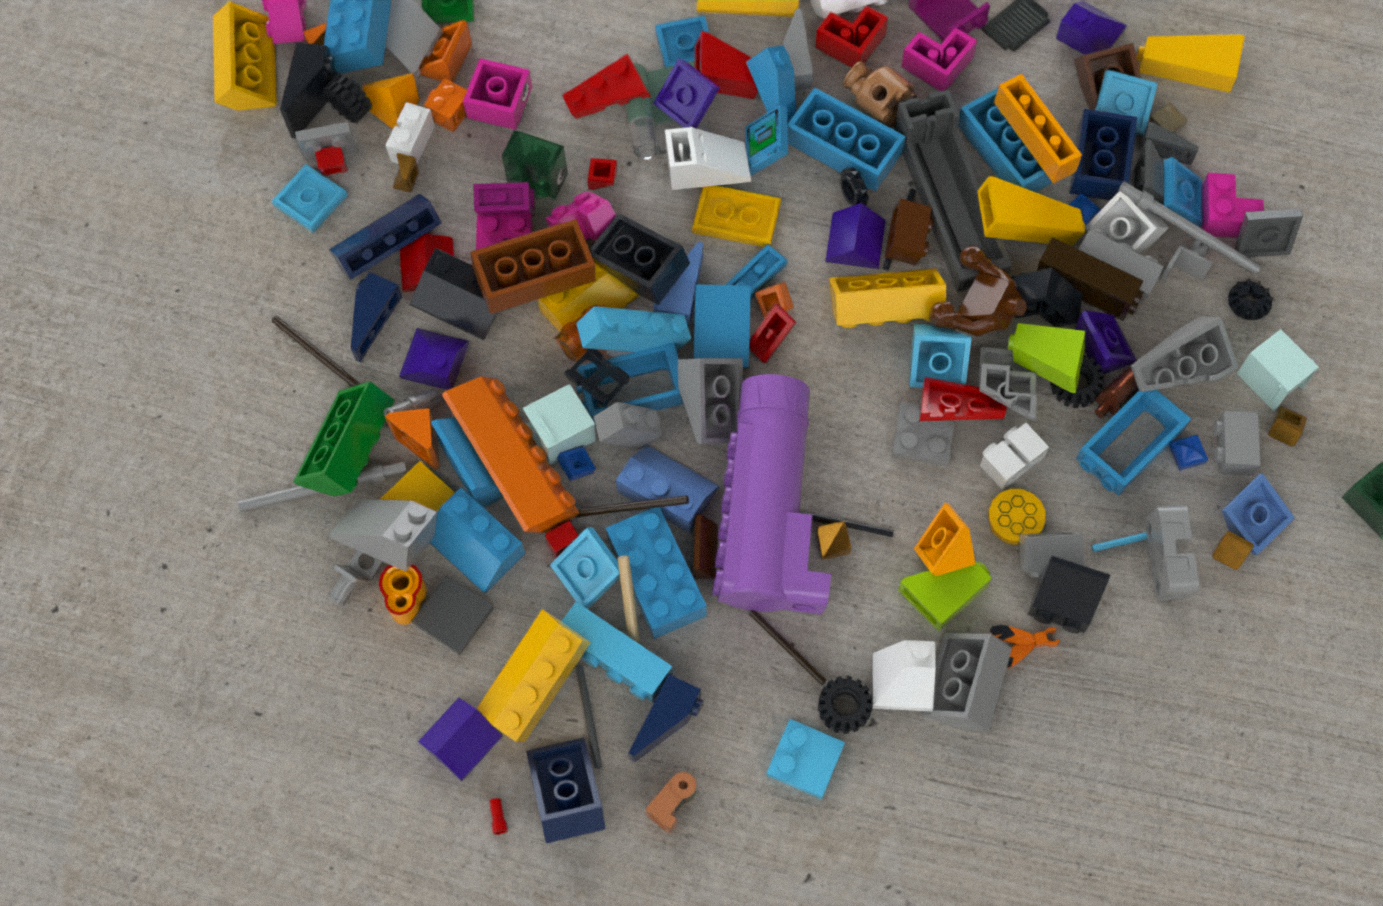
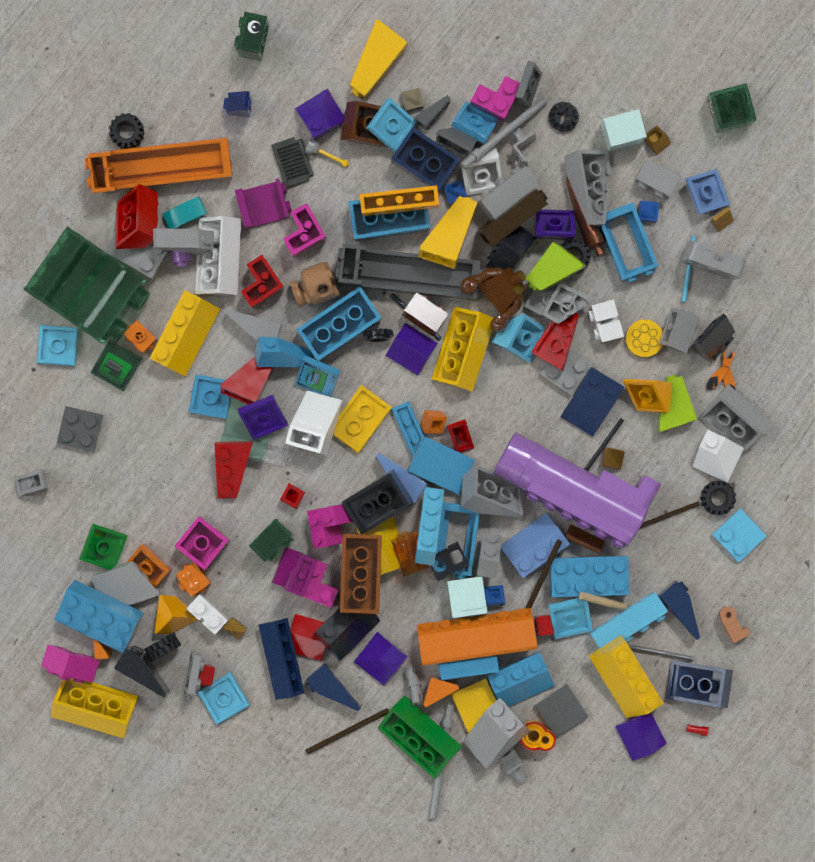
camera: 65 degrees left, 20 degrees up
(898, 481) = (592, 401): none -> dark blue slope
(1046, 34) = (313, 148): none -> hinge

